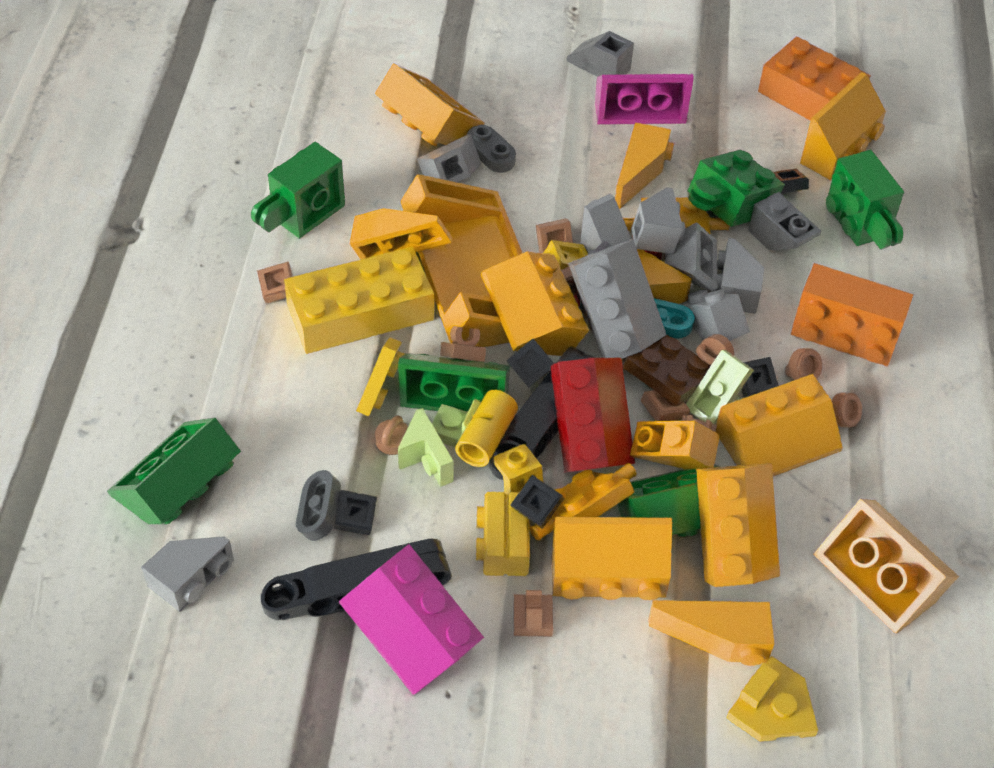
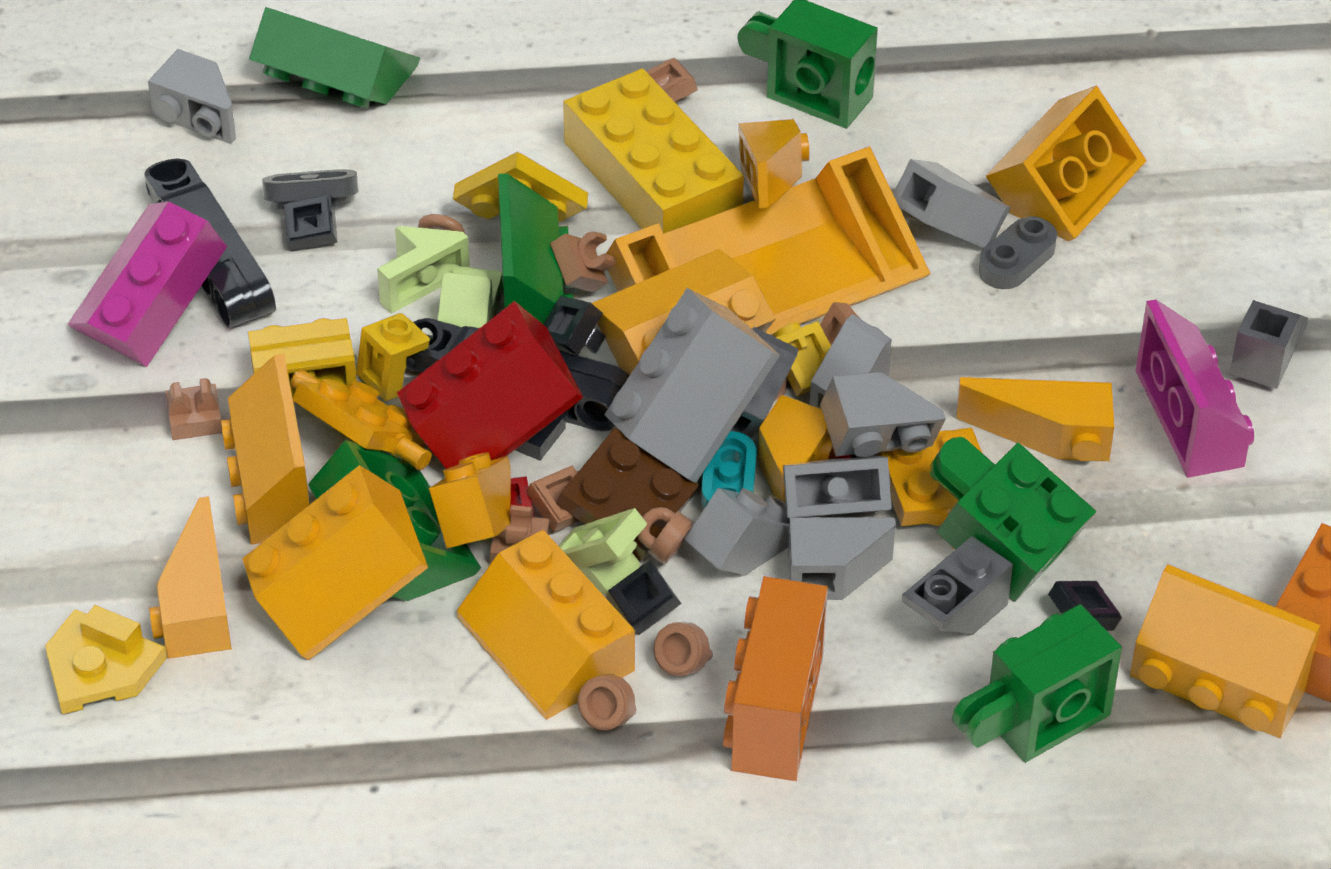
camera: 80 degrees right, 5 degrees down
(486, 428) = (441, 296): yellow pin -> none
(537, 501) = (327, 354): black tile -> none
(885, 565) = (337, 763): light orange slope -> none

